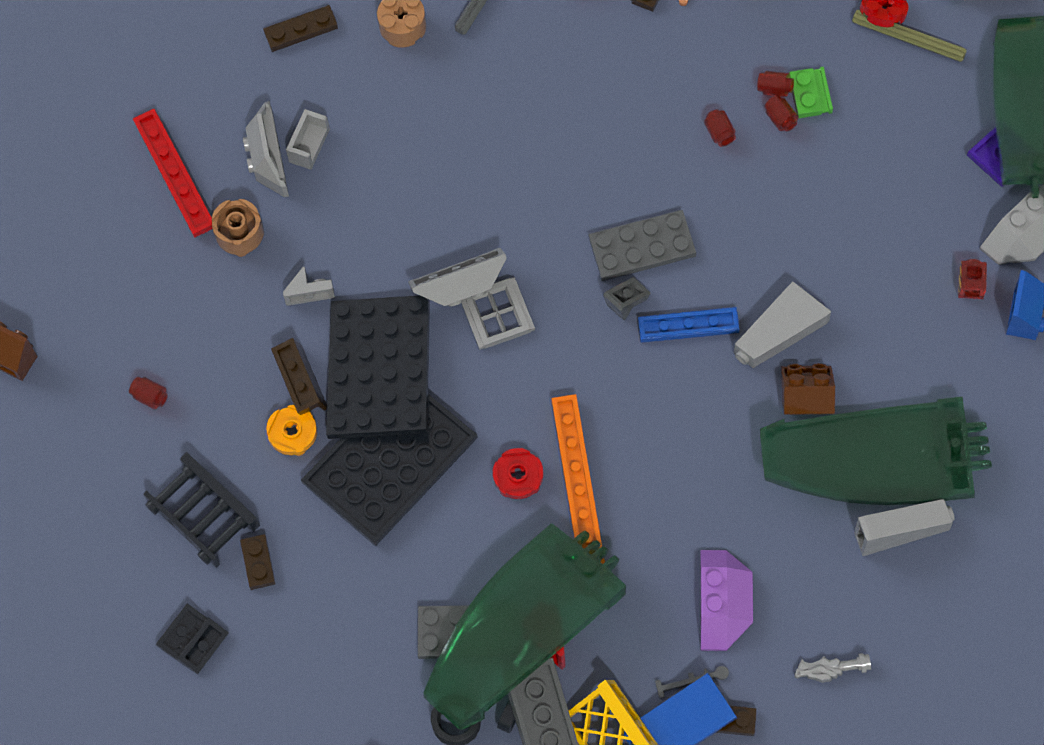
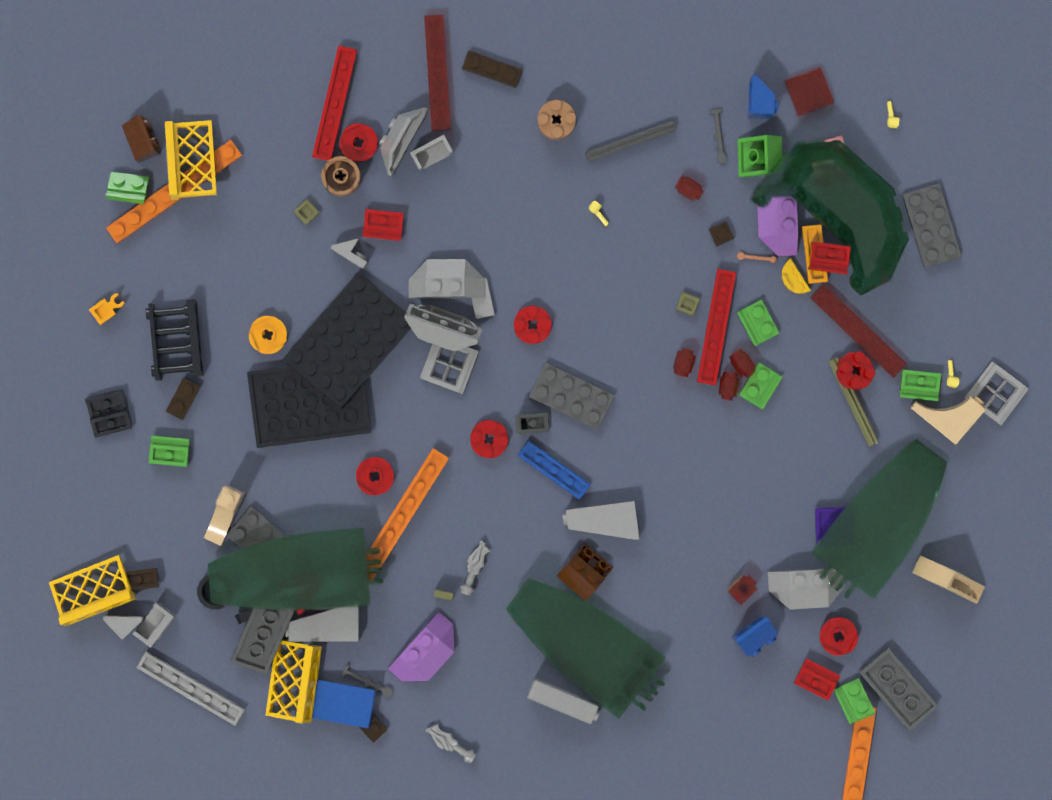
camera: 35 degrees right, 20 degrees up
(30, 408) = (127, 188): none -> bright green plate
(60, 346) = (174, 156): none -> yellow fence
(80, 378) = (161, 199): none -> orange plate
(104, 541) = (105, 310): none -> light orange plate
(148, 392) = (204, 238): clear red brick -> none
(223, 176) = (353, 152): none -> red plate
(231, 290) = (306, 212): none -> olive tile
(250, 69) = (437, 72): none -> clear red plate
(287, 622) = (169, 451): none -> bright green plate
(298, 376) = (298, 307): dark brown panel -> none
(317, 240) = (383, 225): none -> red plate
(397, 632) = (224, 514): none -> tan arch
(424, 239) = (446, 280): none -> light grey wedge
(473, 230) = (483, 306): none -> light grey tile
(508, 67) = (594, 208): none -> light yellow hand
(541, 200) = (543, 323): none -> red plate
(602, 655) = (329, 625): none -> light grey slope
(606, 359) = (478, 436): none -> red plate
(674, 78) = (687, 304): none -> olive tile
(690, 526) = (442, 594): none -> olive tile
(693, 473) = (476, 562): none -> light grey piece
(720, 75) = (716, 327): none -> red plate
(755, 42) = (757, 323): none -> bright green plate

